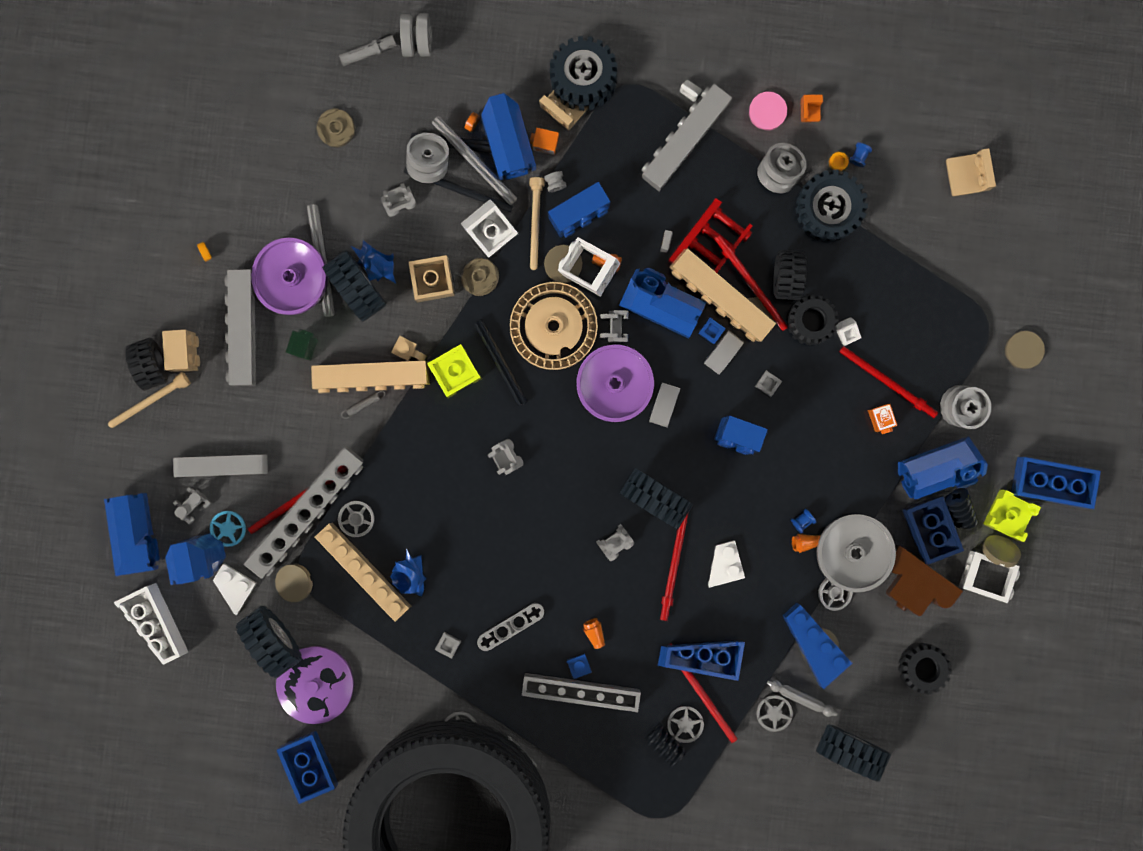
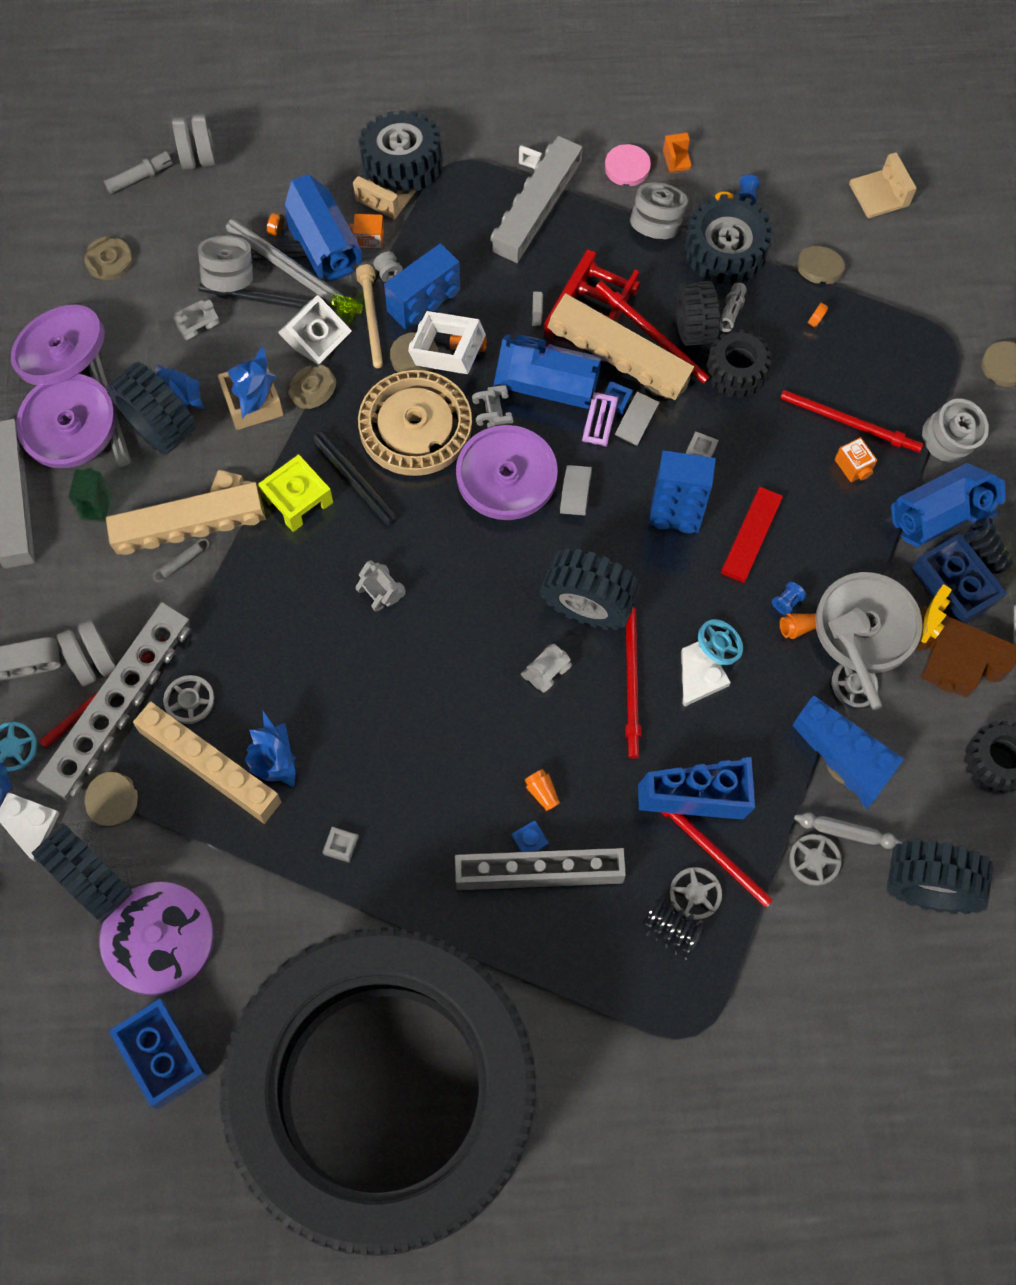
camera: 15 degrees left, 20 degrees down
(287, 473) = (83, 654): none -> light grey wheel
(288, 208) = (57, 345): none -> medium lavender dish
(433, 281) = (251, 382): none -> blue hair
(509, 624) = (421, 799): light grey beam -> none
(517, 209) = (348, 305): none -> clear neon green tile
(701, 334) = (595, 440): none -> lavender tile
(744, 546) = (720, 642): none -> medium azure wheel
(789, 463) = (751, 534): none -> red tile
(822, 264) = (734, 302): none -> light grey pin
(837, 557) = (846, 628): none -> light grey piece
(848, 331) = (785, 374): white slope -> none
(886, 285) = (818, 314): none -> orange tile
(901, 236) = (820, 264): none -> dark tan tile
(902, 563) = (934, 615): none -> yellow slope

